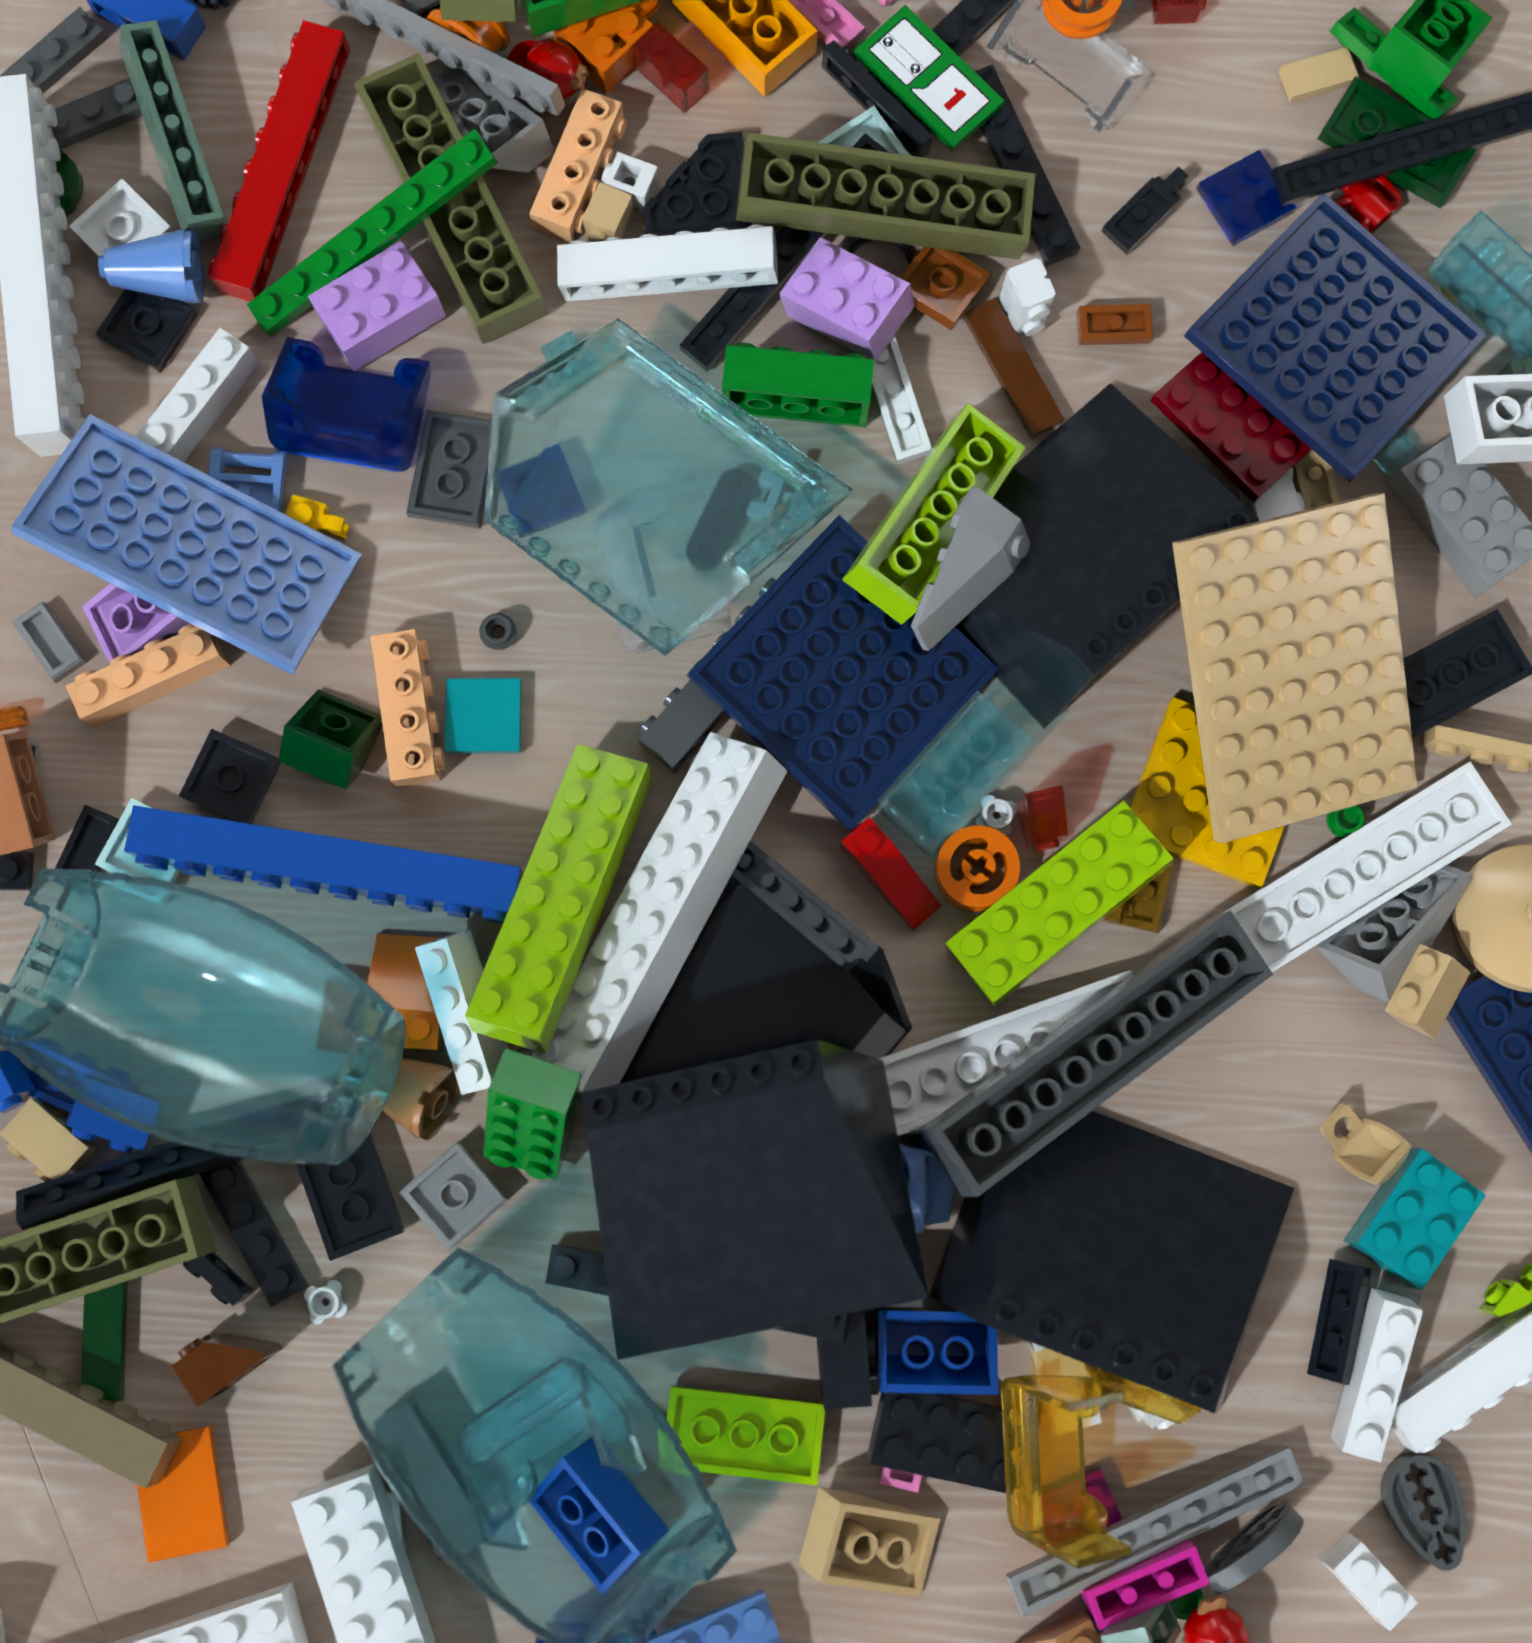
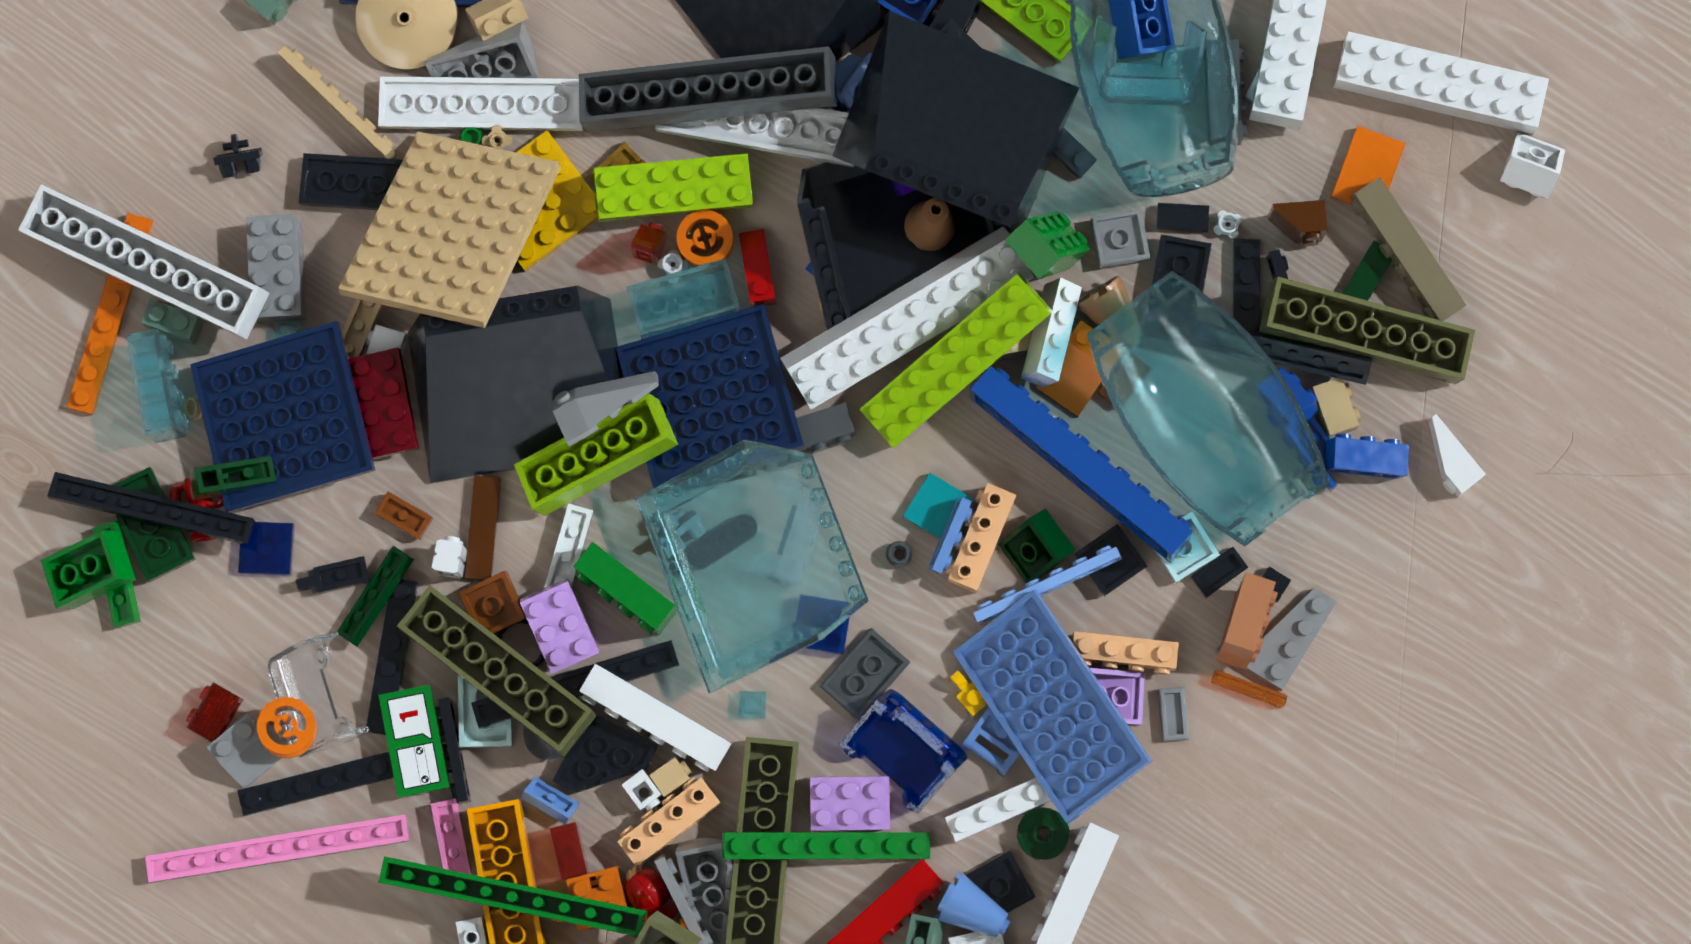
camera: 140 degrees left, 0 degrees up
(113, 393) = (1028, 829): none -> dark green plate
(278, 706) = (1058, 579): none -> light blue plate
(390, 1275) = (1182, 217): none -> black tile
(443, 682) = (951, 535): none -> medium blue plate
(705, 1040) = (930, 225): none -> medium nougat cone
(730, 111) = (550, 800): none -> medium blue plate
(1084, 214) = (375, 596): none -> dark green tile
(1318, 74) = (165, 600): tan tile -> none
(1320, 844) = (497, 132): none -> tan plate
(1346, 223) = (231, 477): none -> dark green slope

